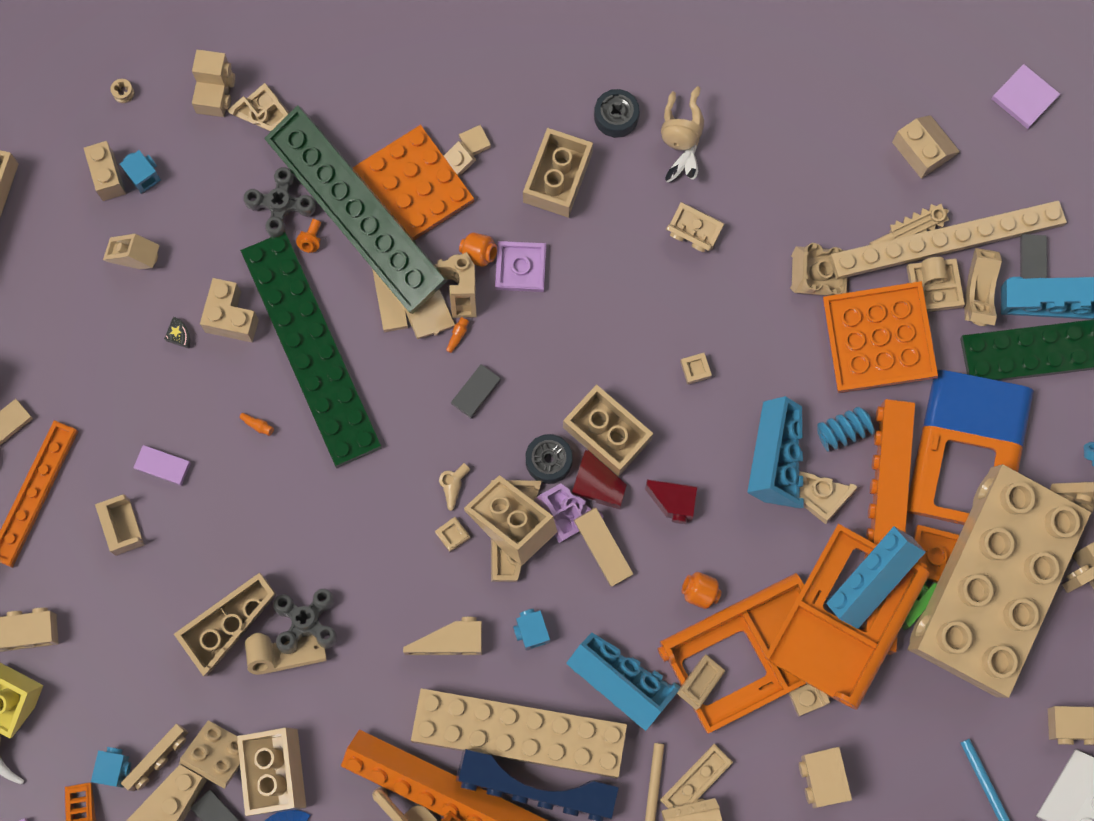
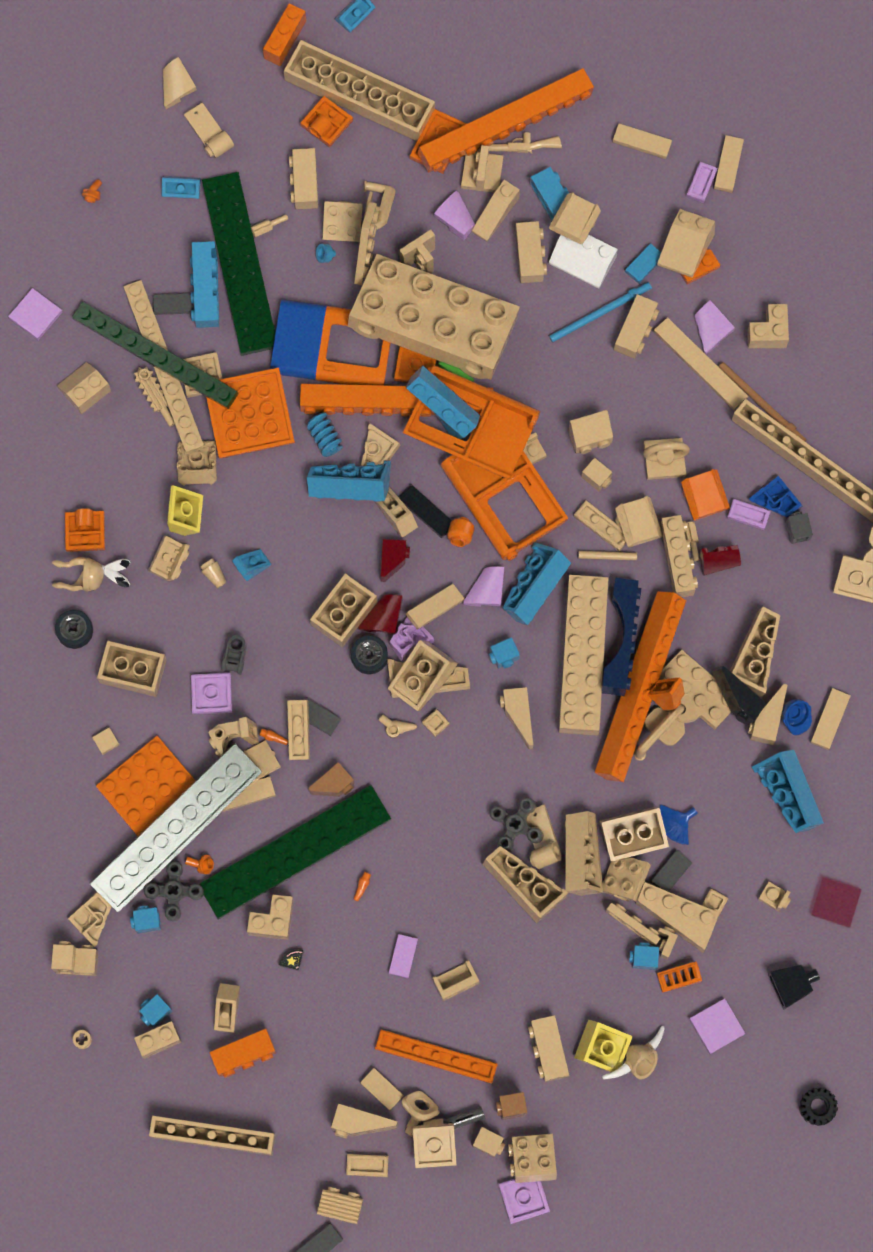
camera: 95 degrees left, 0 degrees up
(73, 266) = (243, 1053): none -> orange brick
(121, 799) = (667, 946): none -> tan bracket
(249, 169) = (145, 919): none -> dark azure brick
(250, 700) = (582, 855): none -> tan wedge
(388, 400) = (333, 783): none -> medium nougat slope
(459, 158) = (123, 750): tan plate -> none
(460, 362) = (298, 729): none -> tan plate
(479, 248) = (200, 726): orange head -> none
(562, 296) = (234, 659): none -> dark grey piece
(622, 618) = (487, 588): none -> lavender slope
(673, 279) = (214, 573): none -> tan cone
(680, 324) = (251, 564): none -> dark azure slope
(695, 368) = (285, 550): tan plate -> none
(700, 682) = (530, 526): tan tile -> none
(731, 510) = (397, 514): none -> tan slope
(734, 549) = (426, 511): none -> black tile
(739, 134) = (84, 530): none -> orange plate
(753, 244) = (184, 511): none -> light yellow slope
(766, 781) = (597, 475): none -> tan brick
(960, 228) = (155, 355): none -> dark green plate
(981, 287) = (203, 341): tan arch -> none

